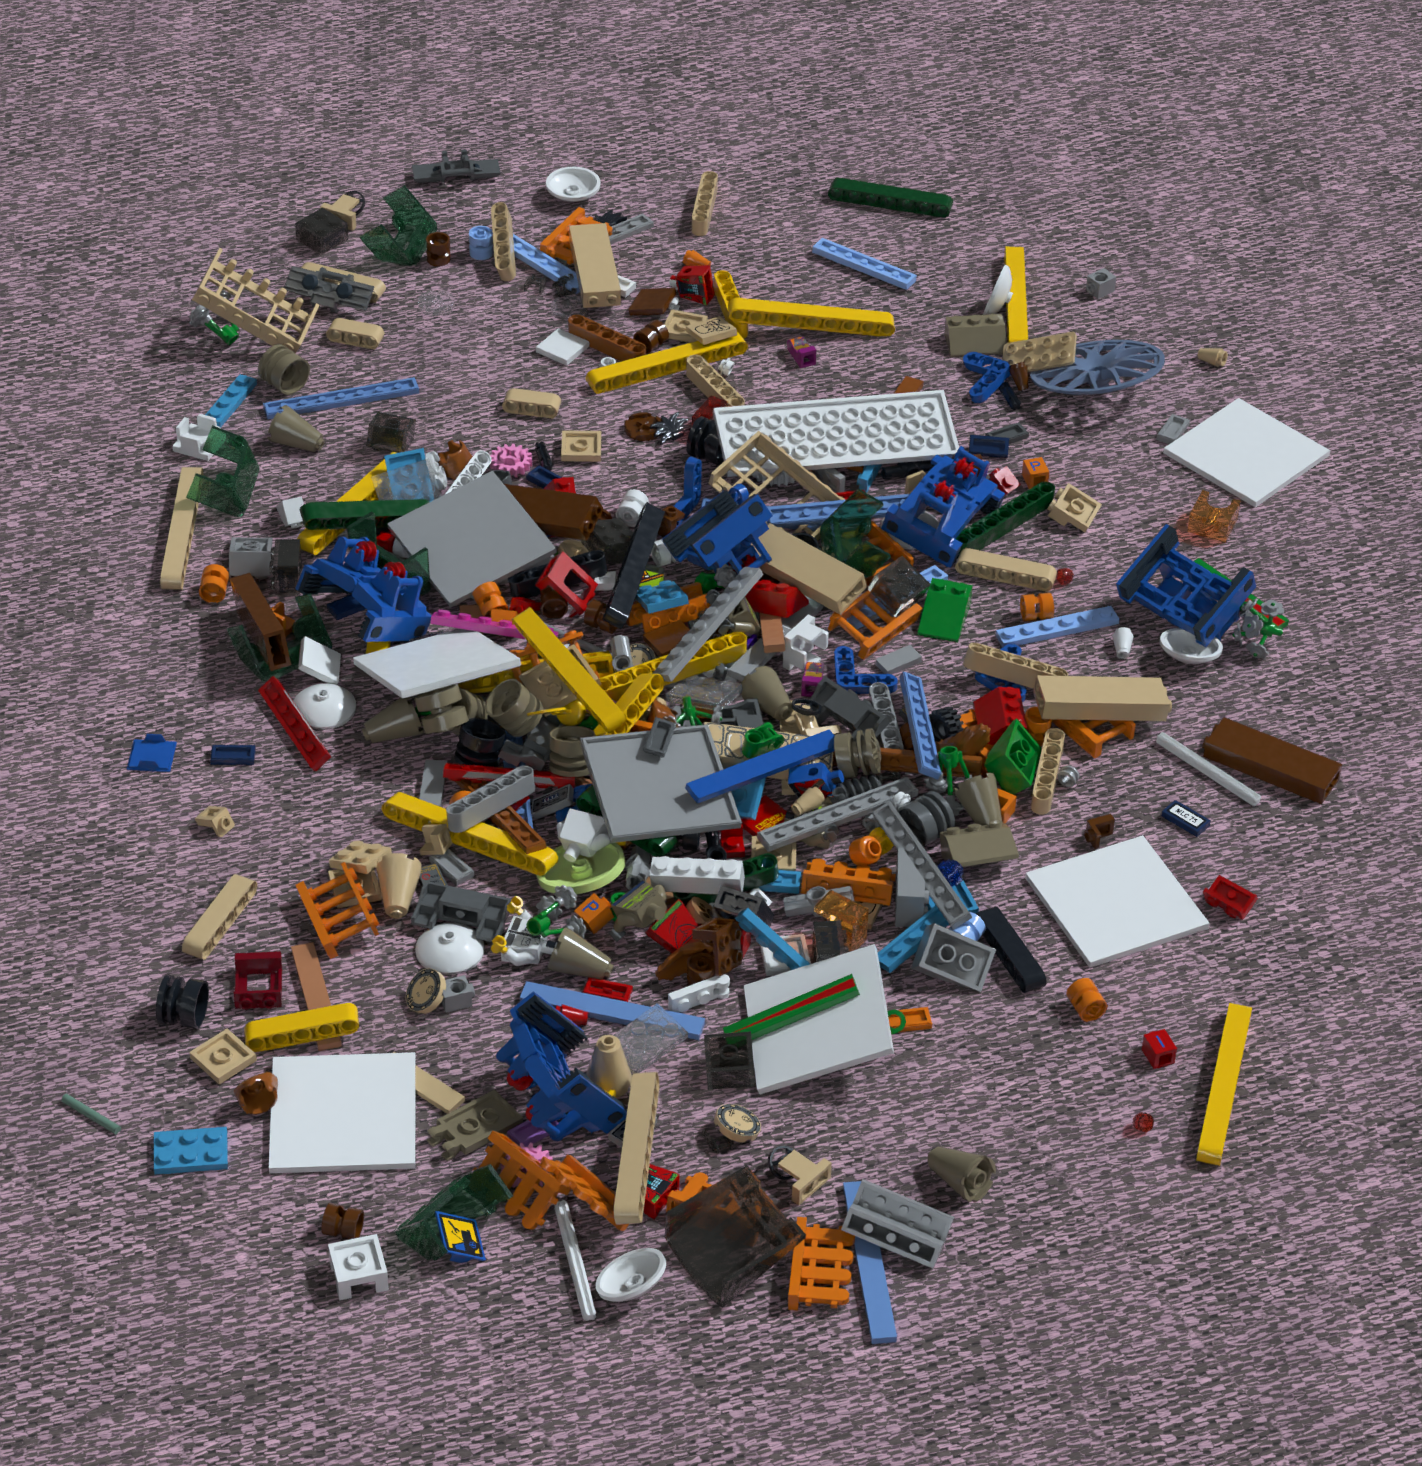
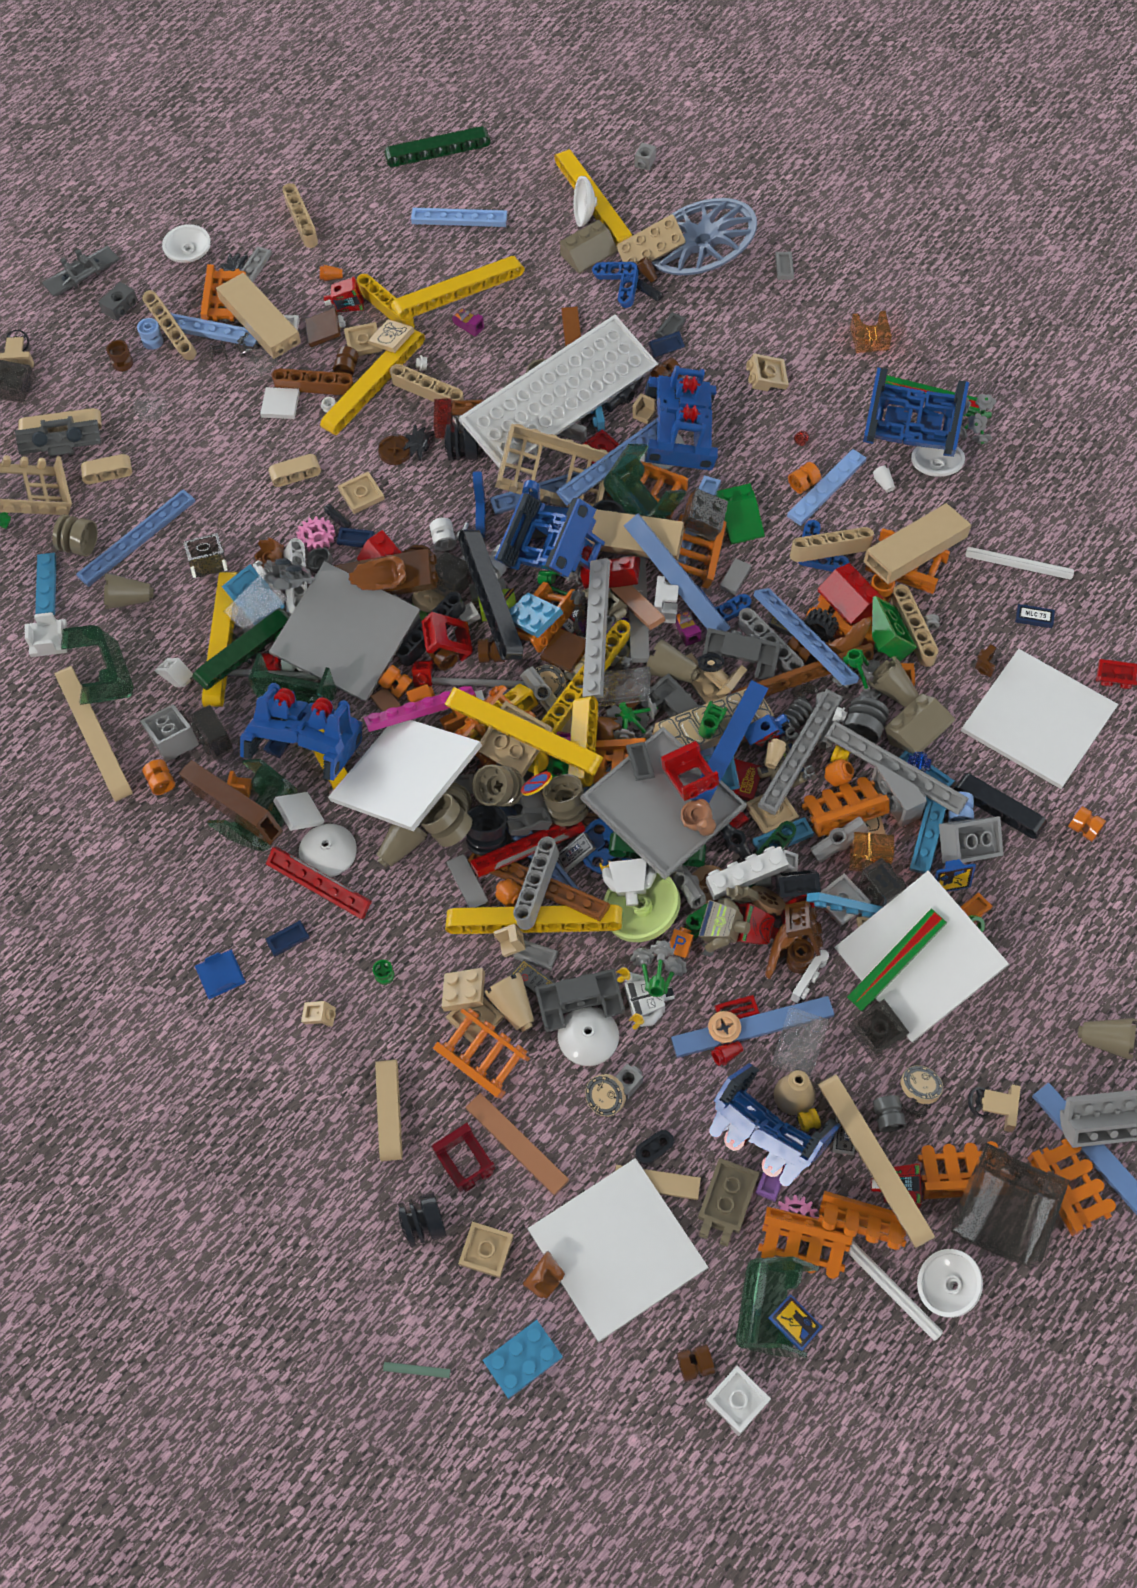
camera: 25 degrees left, 20 degrees up
(298, 814) = (383, 967): none -> green wheel
(301, 1027) = (532, 1187): yellow beam -> none
(413, 226) = (88, 351): clear green windscreen -> none
(440, 1054) = (654, 1148): none -> black plate
(449, 466) = (286, 574): none -> dark grey piece
(471, 206) = (118, 301): none -> dark grey brick
(535, 499) = (379, 574): none -> dark orange hair
(575, 988) = (728, 1019): none -> light nougat gear
(579, 957) = (698, 994): dark tan cone -> none
(670, 520) = (484, 527): reddish brown bracket -> none
(676, 888) = (742, 894): none -> dark tan plate
(680, 804) = (698, 817): none -> nougat hair
(685, 1129) = (889, 1113): none -> dark grey wheel
(700, 760) = (683, 760): none -> red window
(826, 616) = (675, 574): none -> medium blue tile
(853, 754) = (782, 689): dark tan wheel -> none
(906, 977) = (955, 875): none -> piece
(1004, 479) = (697, 365): bracket -> none
(1006, 569) = (757, 453): tan beam -> none
(1007, 517) = (727, 401): dark green beam -> none
(1035, 471) = (717, 353): orange brick -> none
(1214, 356) = (768, 186): tan cone -> none
(1246, 452) = (849, 261): white tile -> none
(1272, 760) = (1059, 533): reddish brown brick -> none

